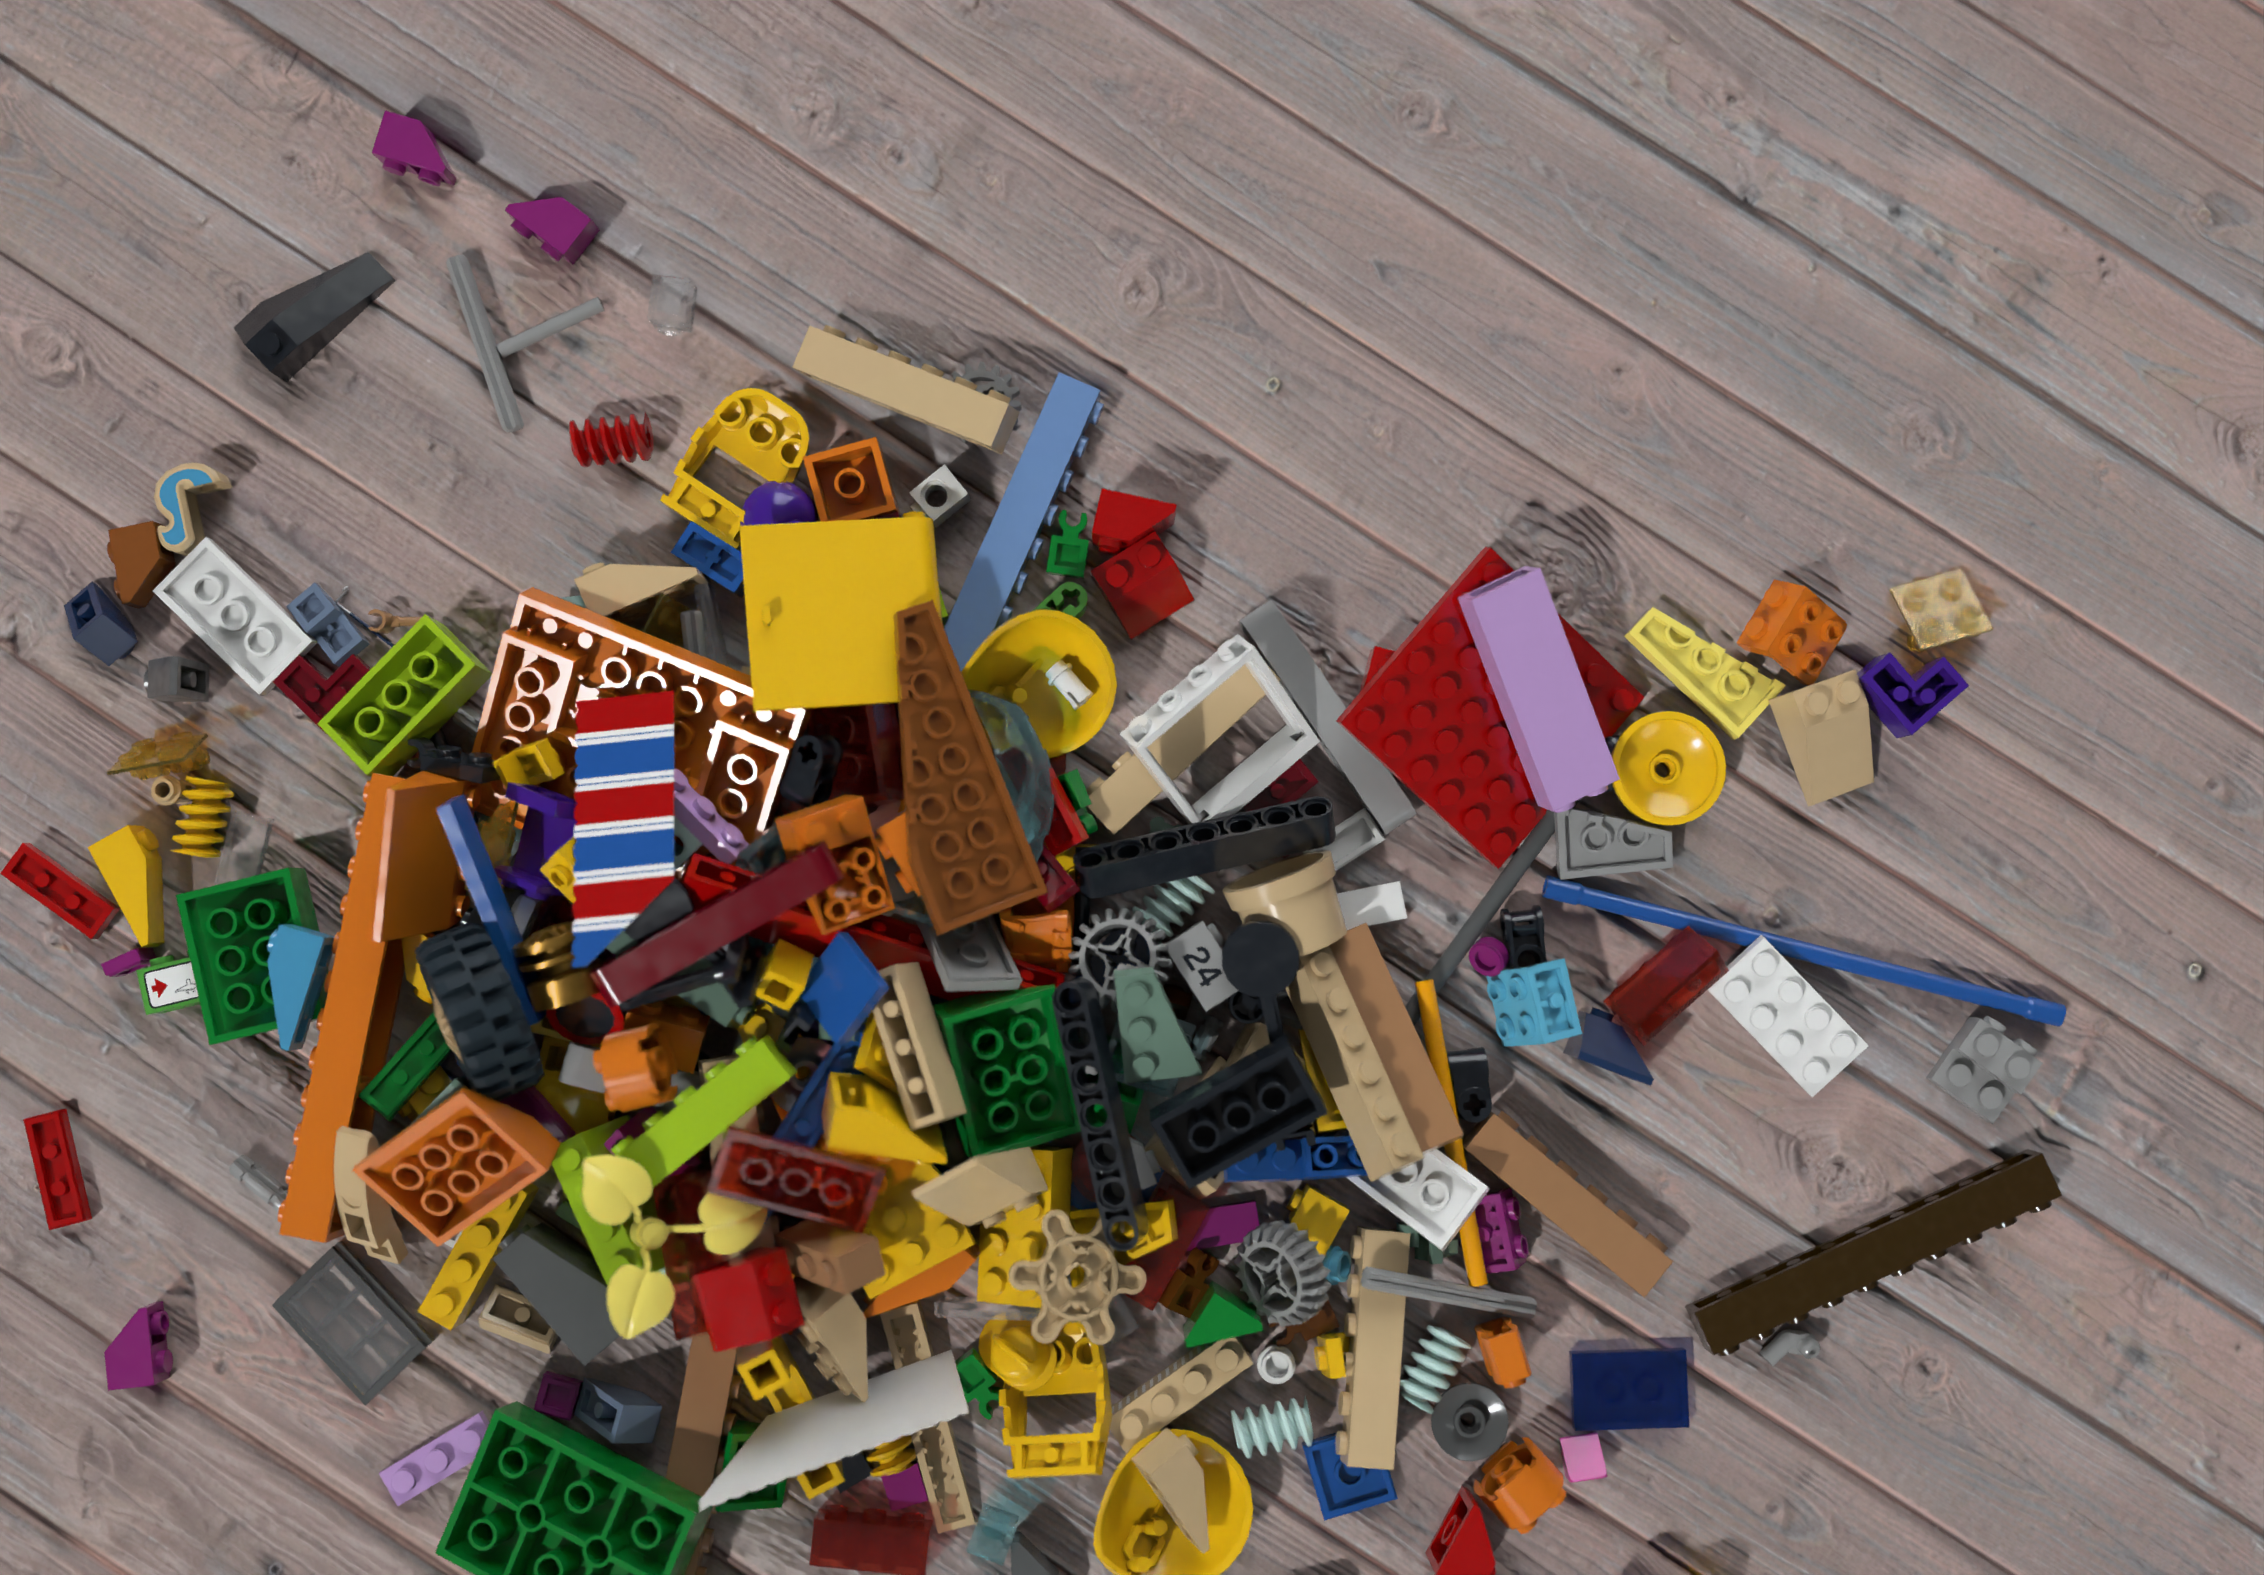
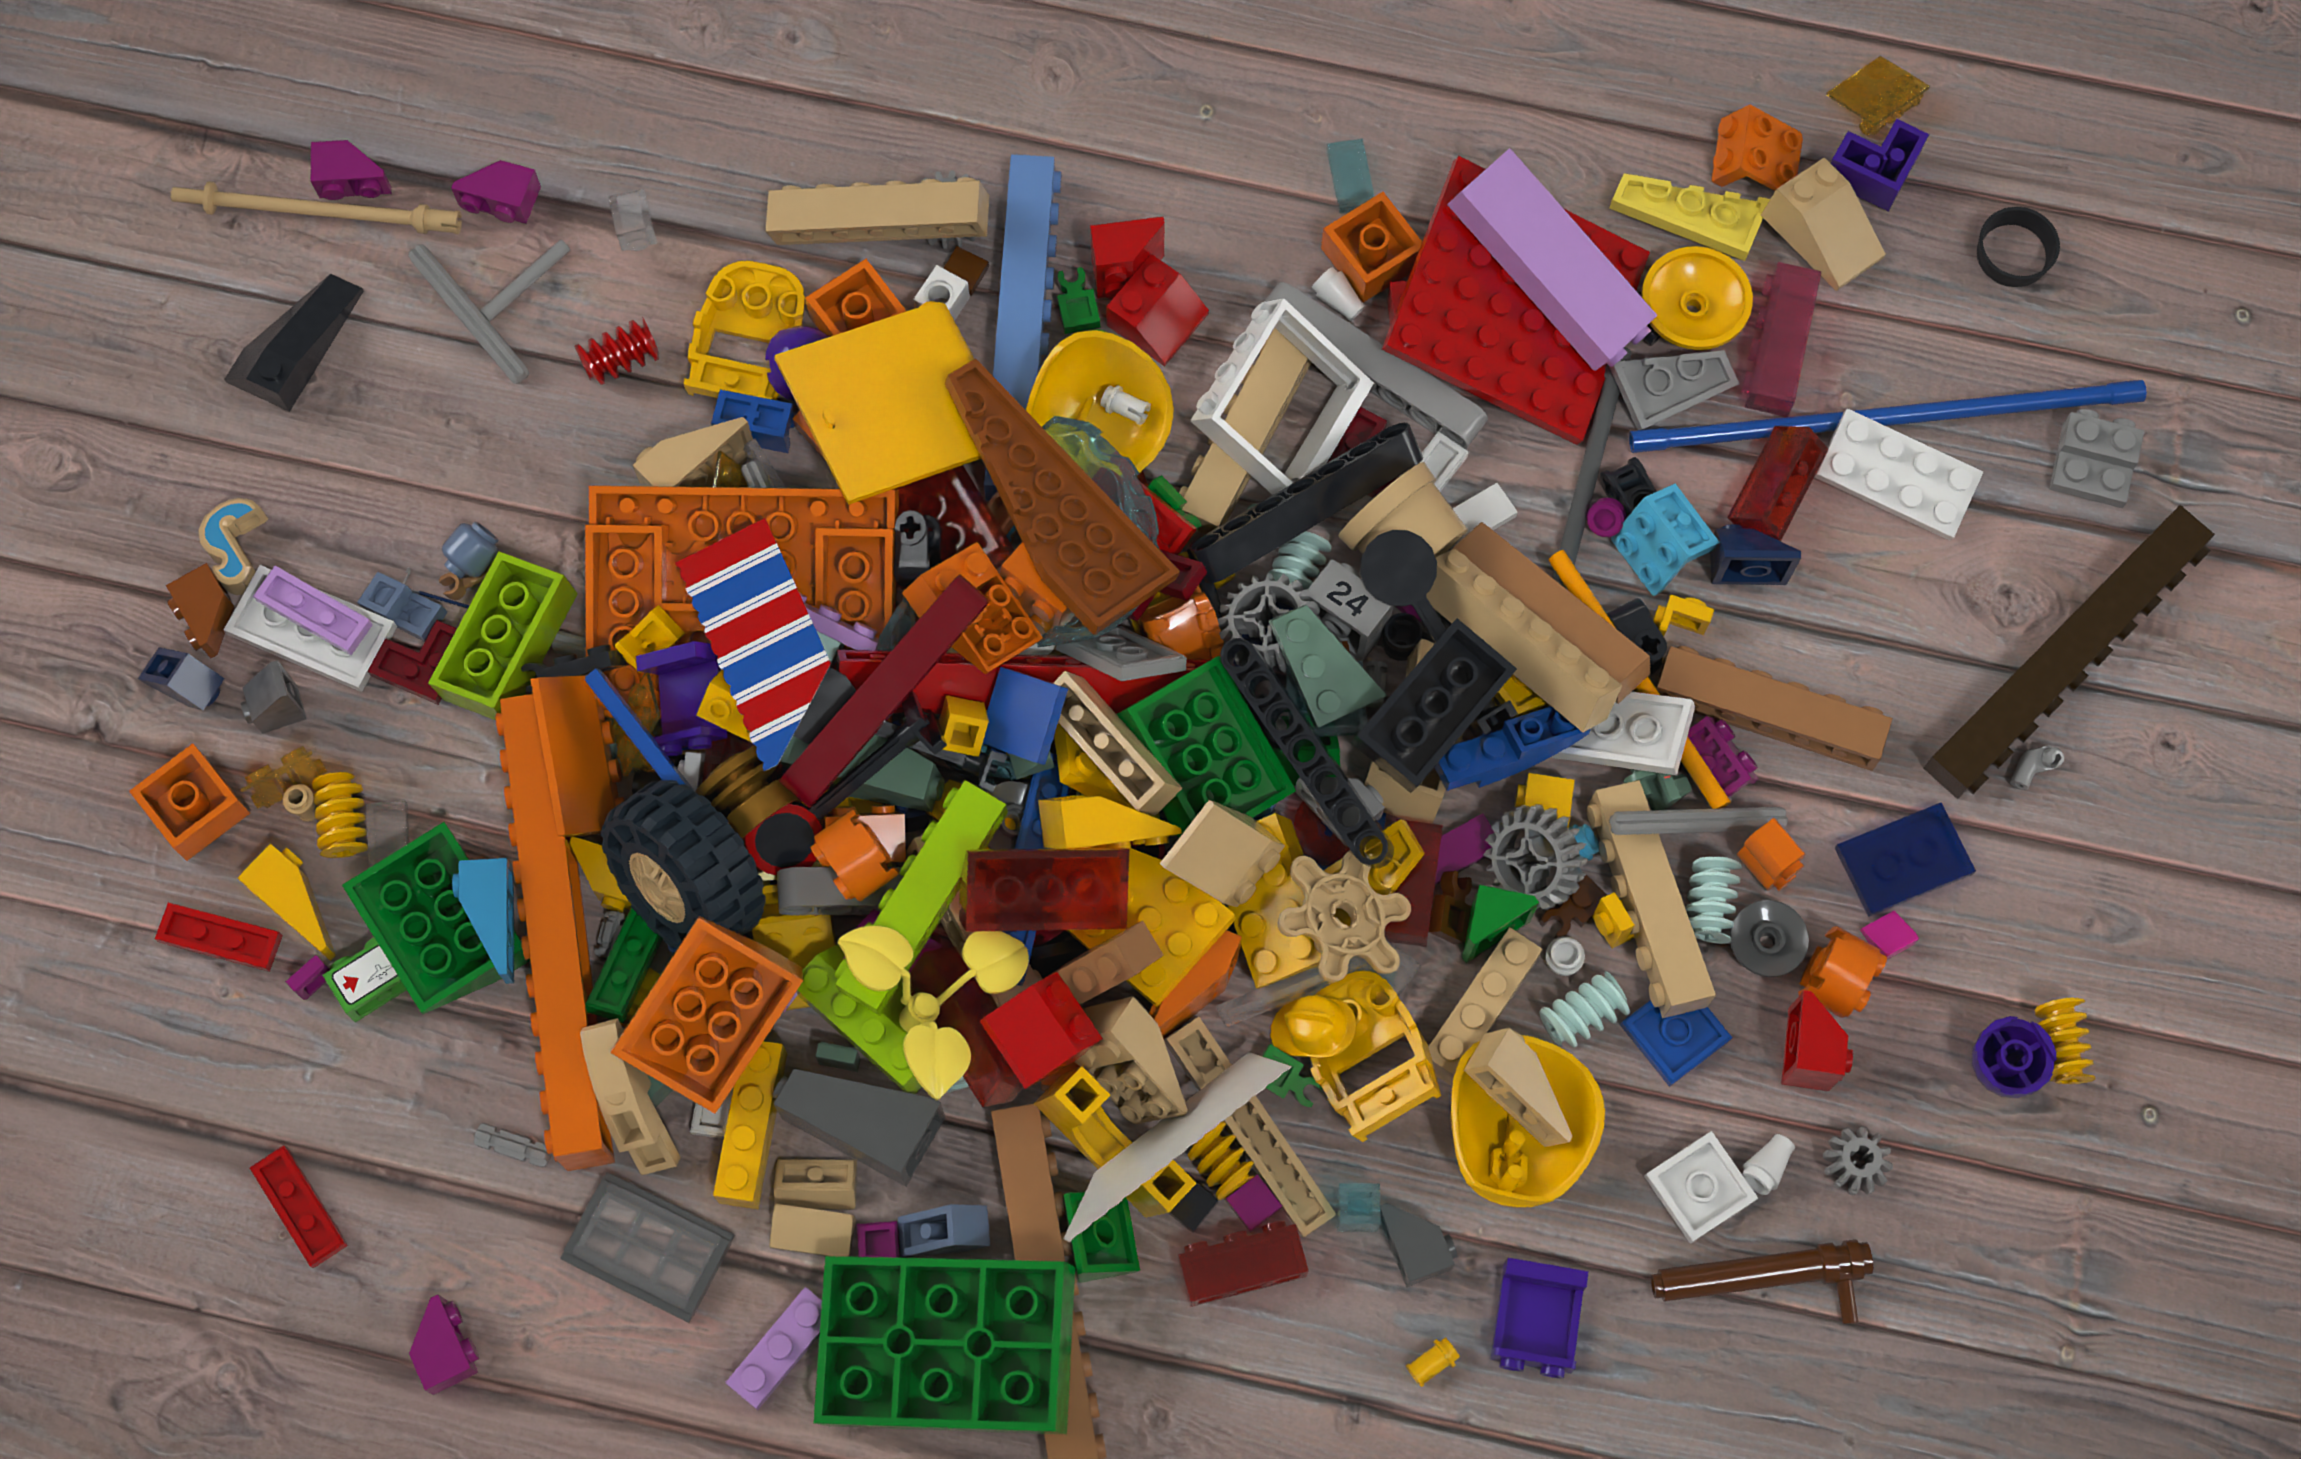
camera: 20 degrees left, 15 degrees down
(67, 753) = (189, 802): none -> orange brick
(236, 606) = (313, 610): none -> lavender plate
(406, 593) = (470, 550): none -> sand blue head
(414, 1019) = (609, 932): none -> light grey piece
(471, 226) = (421, 218): none -> tan bar
(503, 1363) = (812, 1231): none -> tan slope
(974, 471) = (968, 267): none -> reddish brown tile
(1324, 629) = (1338, 293): none -> white cone
(1375, 597) = (1371, 246): none -> orange brick
(1386, 507) = (1350, 174): none -> clear light blue tile
(1527, 1080) = (1684, 613): none -> yellow bracket
(1734, 836) = (1782, 339): none -> clear pink brick
(2040, 820) = (2030, 220): none -> black tyre

